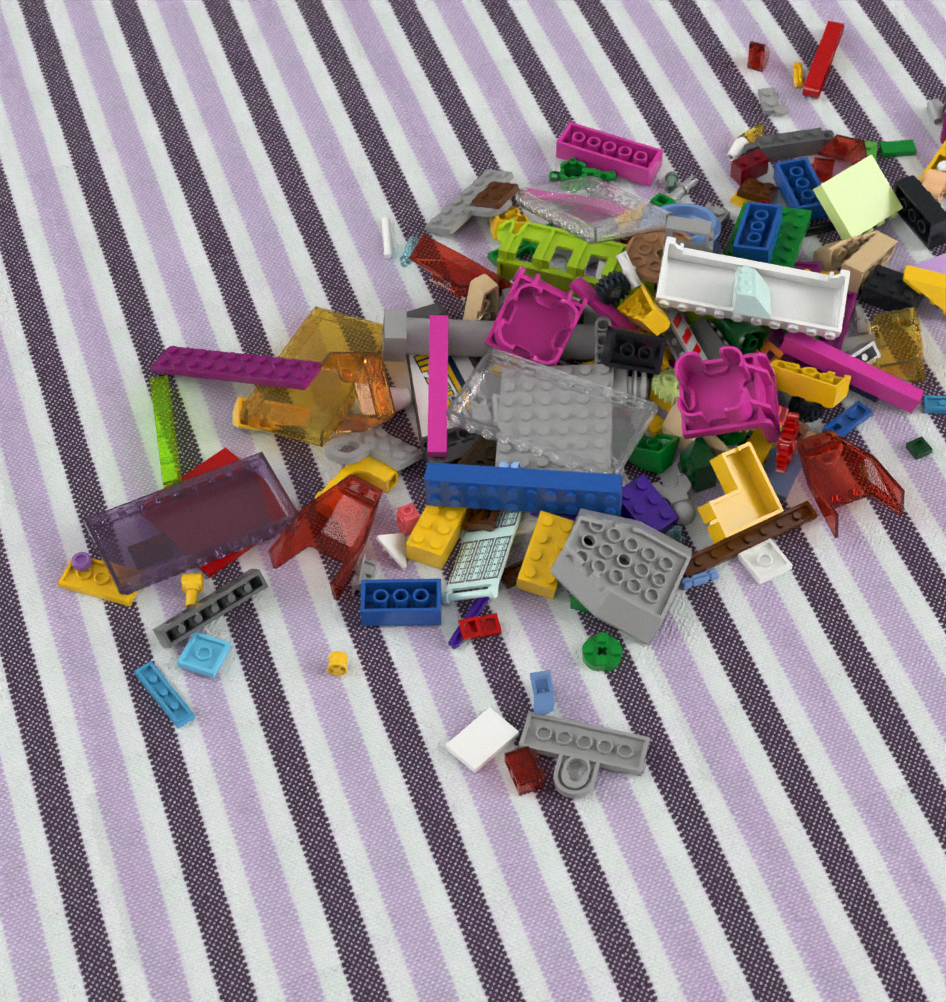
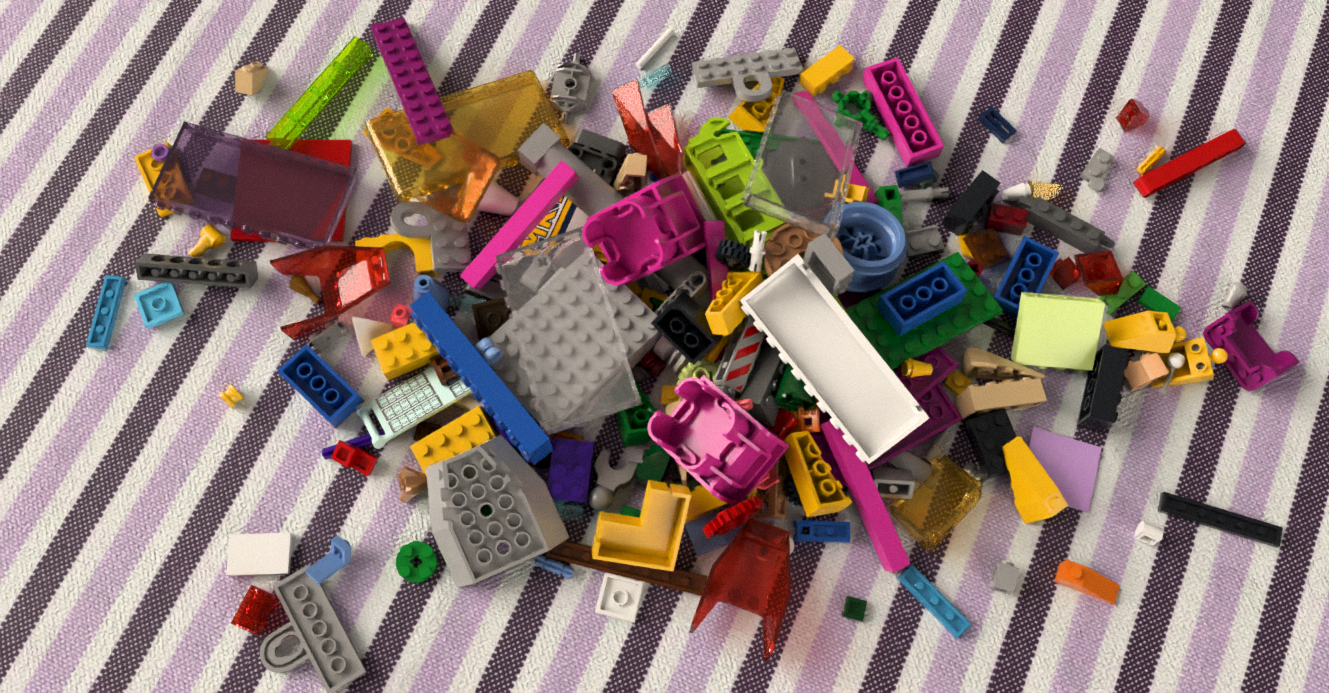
camera: 40 degrees right, 20 degrees up
(94, 464) = (250, 78): none -> tan slope
(305, 560) = (301, 286): none -> pearl gold cone
(363, 307) = (570, 99): none -> light grey plate
(410, 488) = (427, 284): none -> medium blue cone
(495, 195) = (760, 81): reddish brown plate -> none
(528, 165) = (827, 71): none -> yellow brick
(541, 607) = (411, 483): none -> medium nougat rock
(660, 182) = (914, 174): none -> dark blue tile
(677, 122) = (995, 126): none -> dark blue tile
(719, 171) = (971, 204): none -> black brick
(750, 294) = (824, 365): light aqua slope -> none
(910, 161) = (1144, 332): none -> yellow slope

